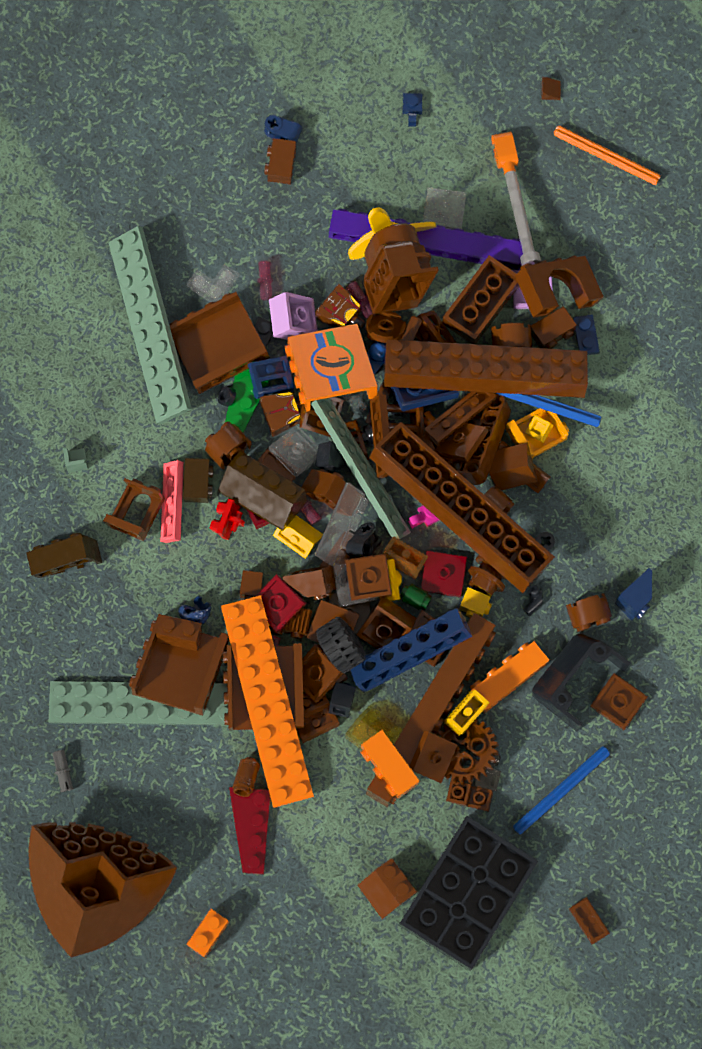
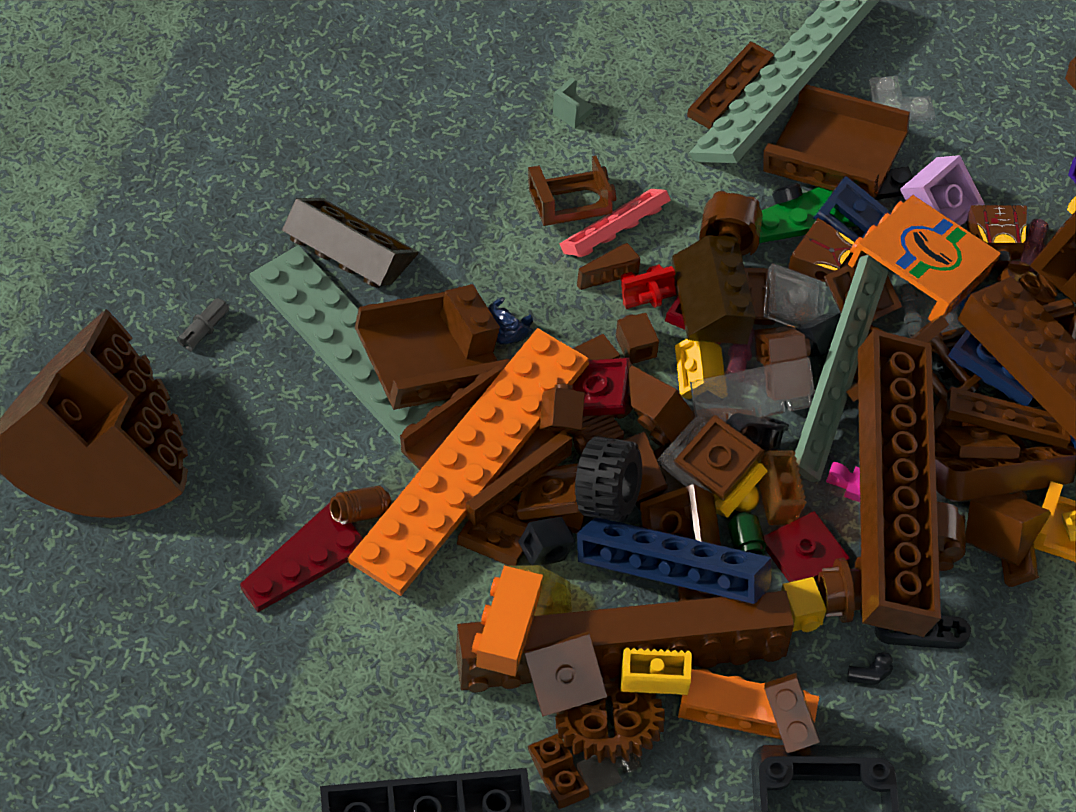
camera: 50 degrees right, 20 degrees down
(63, 555) = (456, 160): dark brown wedge -> none
(70, 652) = (348, 240): none -> slope
(130, 362) = (729, 84): none -> reddish brown plate
(197, 480) = (662, 228): dark brown brick -> none
(200, 525) = (609, 267): none -> reddish brown slope
(207, 933) = (131, 594): orange brick -> none
(254, 552) = (637, 338): none -> reddish brown brick
(265, 280) = (956, 143): clear pink axle -> none
(283, 635) = (562, 409): none -> reddish brown brick
(387, 888) = (357, 751): reddish brown slope -> none
(539, 666) = (791, 712): none -> reddish brown brick
(589, 611) = (918, 735): reddish brown brick -> none
(637, 596) = (993, 773): dark blue slope -> none

